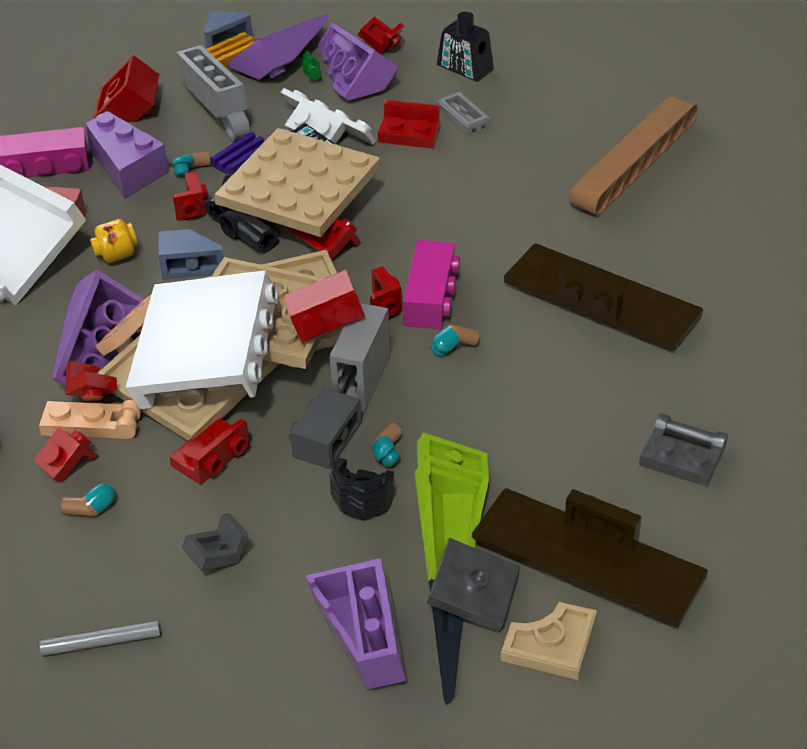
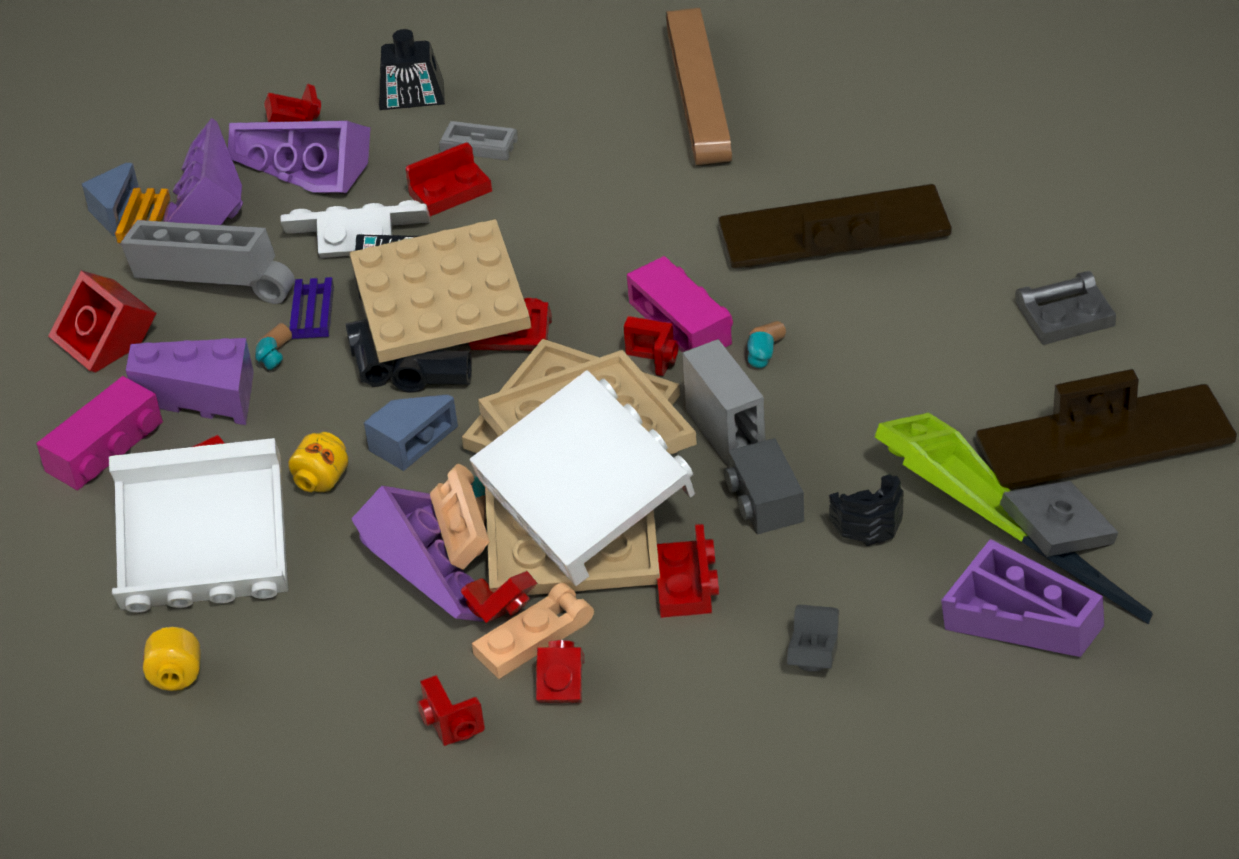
camera: 40 degrees left, 0 degrees up
(91, 503) = (646, 694): arm -> none
(99, 638) = (815, 787): light grey bar -> none
(191, 203) = (333, 373): red bracket -> none
(310, 65) = (258, 182): green piece -> none
(323, 306) = (668, 370): red brick -> none
(383, 445) = (832, 469): teal arm -> none
(554, 643) = (1165, 518): tan tile -> none

